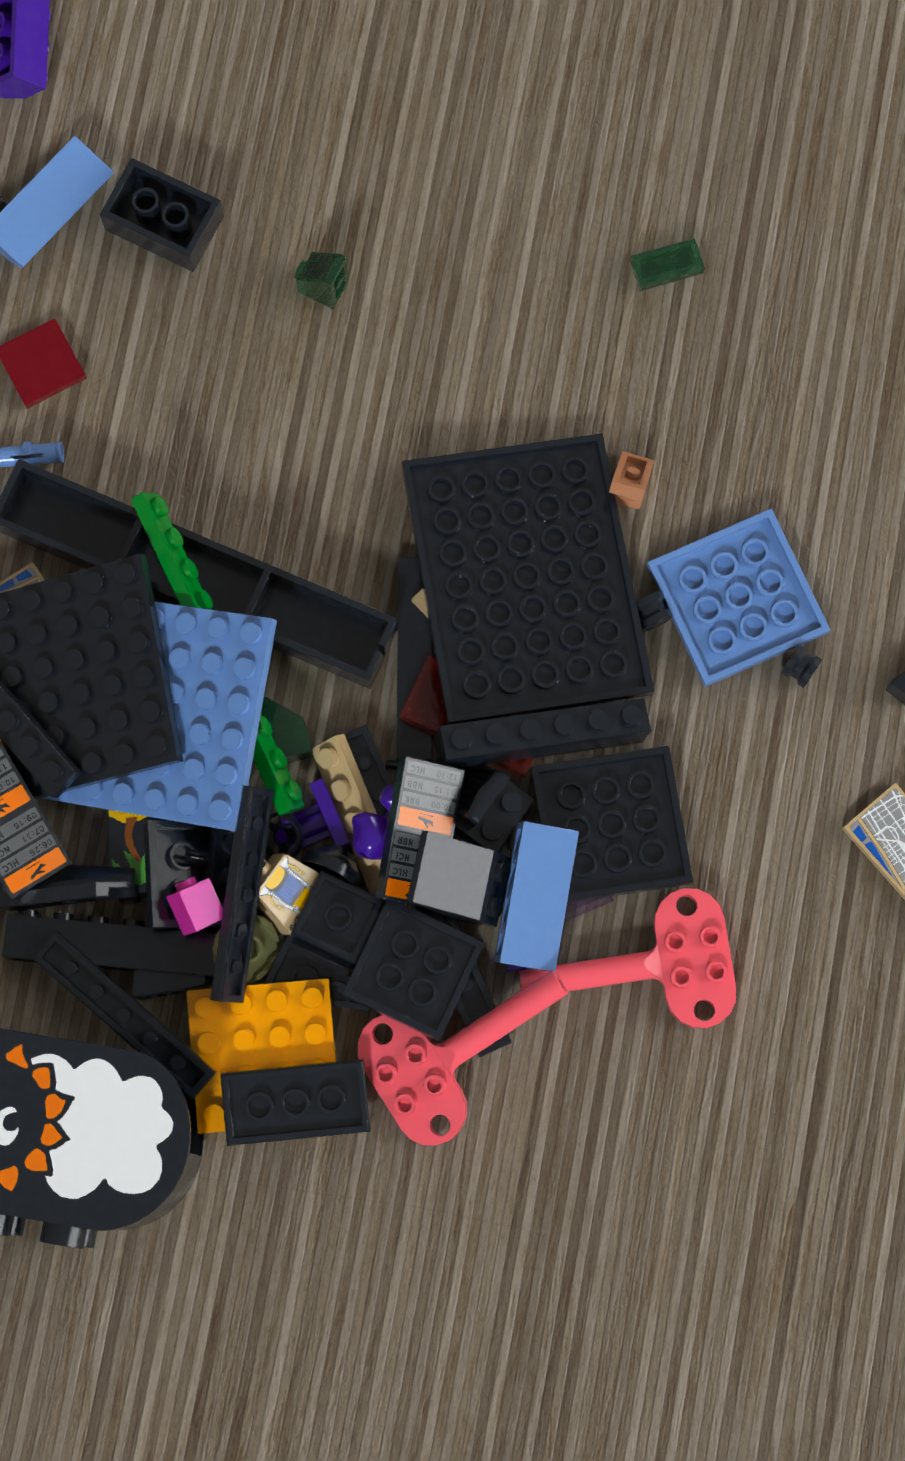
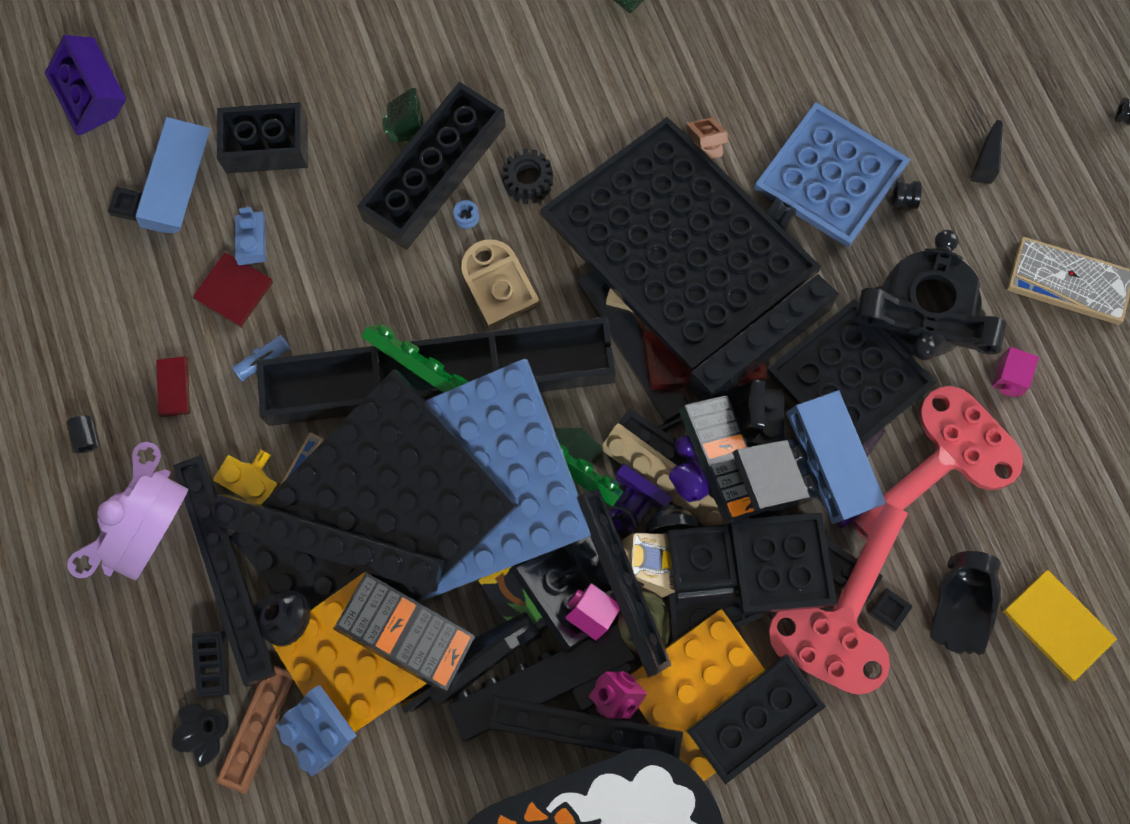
camera: 25 degrees left, 5 degrees down
(89, 317) = (250, 237): none -> medium blue plate
(173, 1000) = (617, 695): none -> dark pink brick
(315, 515) = (498, 284): none -> tan tile
(321, 347) = (432, 165): none -> black brick
(336, 424) = (466, 205): none -> medium blue bush
(415, 395) = (523, 162): none -> black tyre
(500, 1079) = (890, 609): none -> black tile
(577, 1117) = (967, 603): none -> black hair
(658, 1194) = (1059, 625): none -> yellow tile
(716, 826) = (928, 333): none -> black piece
(785, 919) = (1015, 372): none -> dark pink brick

